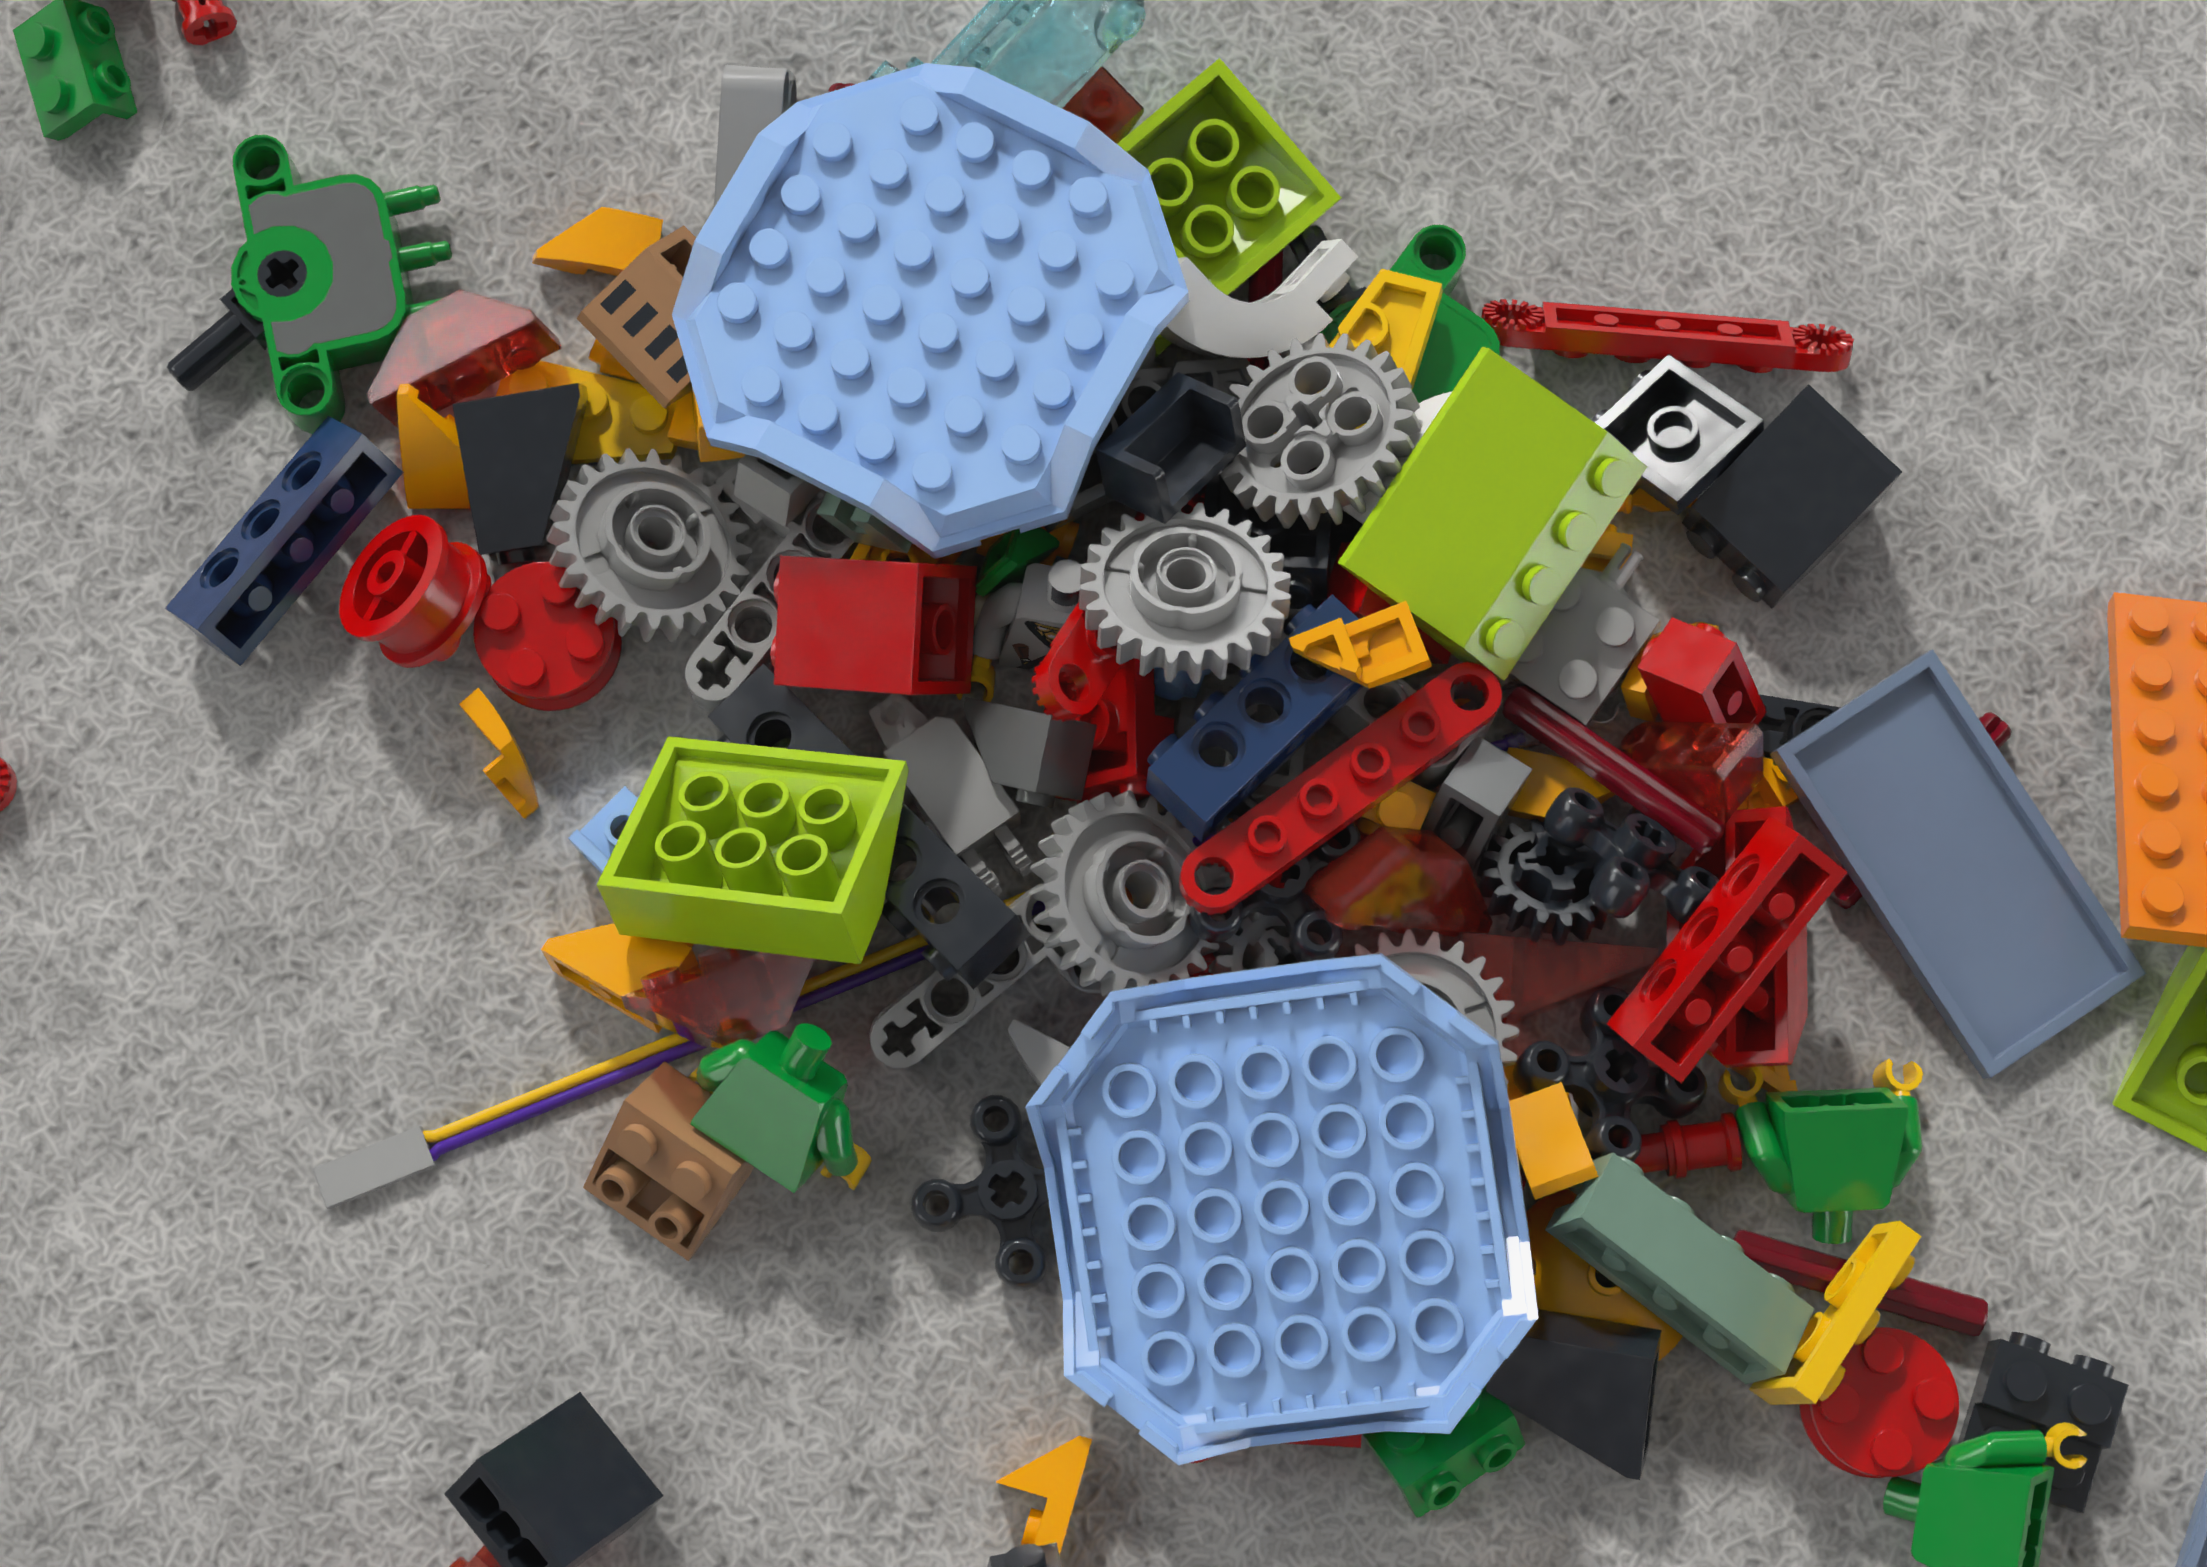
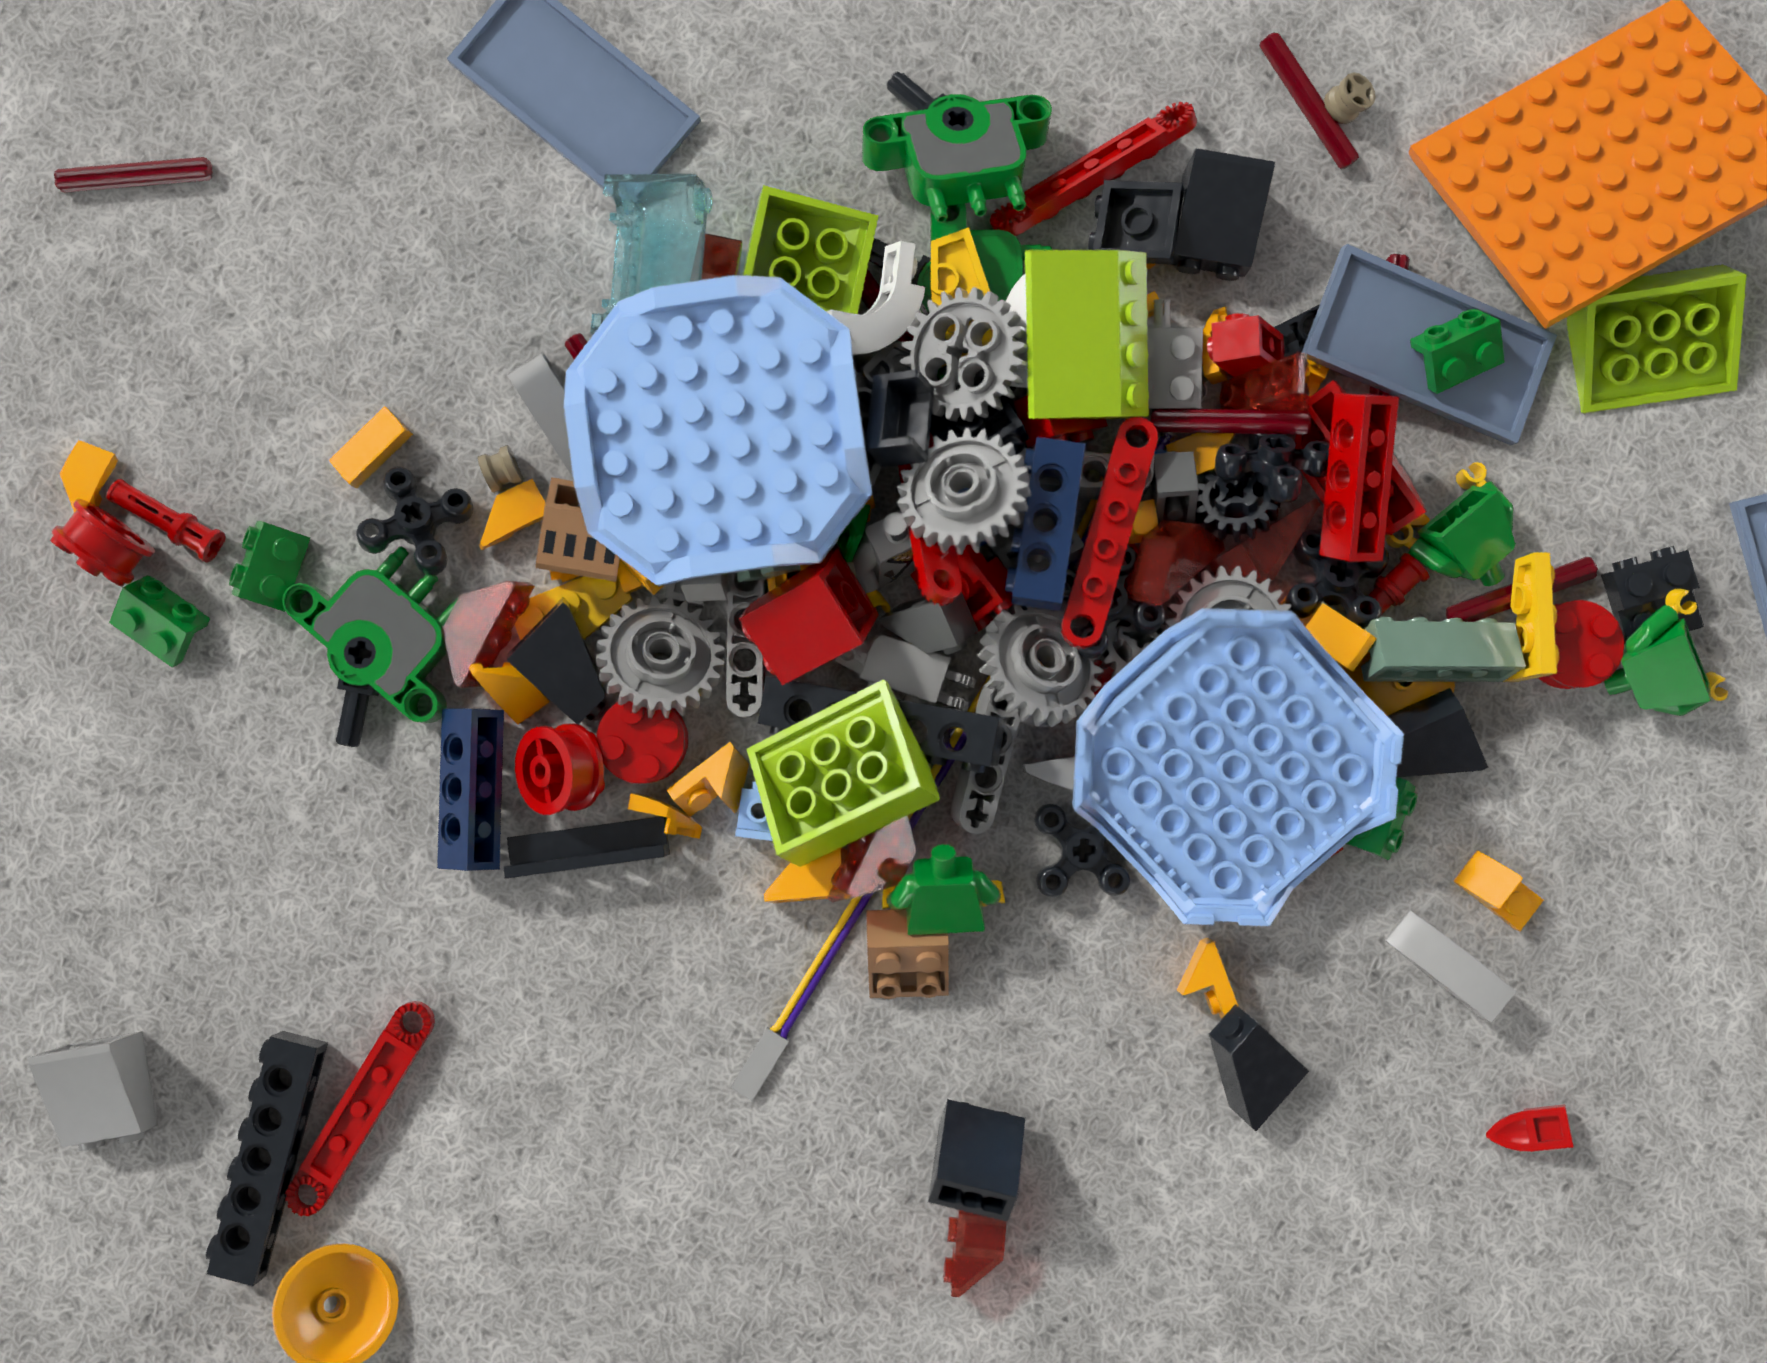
camera: 35 degrees left, 10 degrees up
(260, 97) = (269, 564): none -> green bracket
(372, 722) = (587, 847): none -> black fence
(477, 167) = (419, 532): none -> black gear
(494, 46) = (370, 447): none -> light orange slope
(596, 749) = (718, 775): none -> light orange slope
(632, 179) = (500, 468): none -> dark tan wheel
(1368, 649) = (1078, 452): light orange slope -> none
(1507, 181) = (956, 145): none -> green piece
(1992, 893) = (1460, 349): none -> green bracket
(2017, 445) = (1308, 100): none -> dark red axle
(2072, 475) = (1349, 98): none -> dark tan wheel

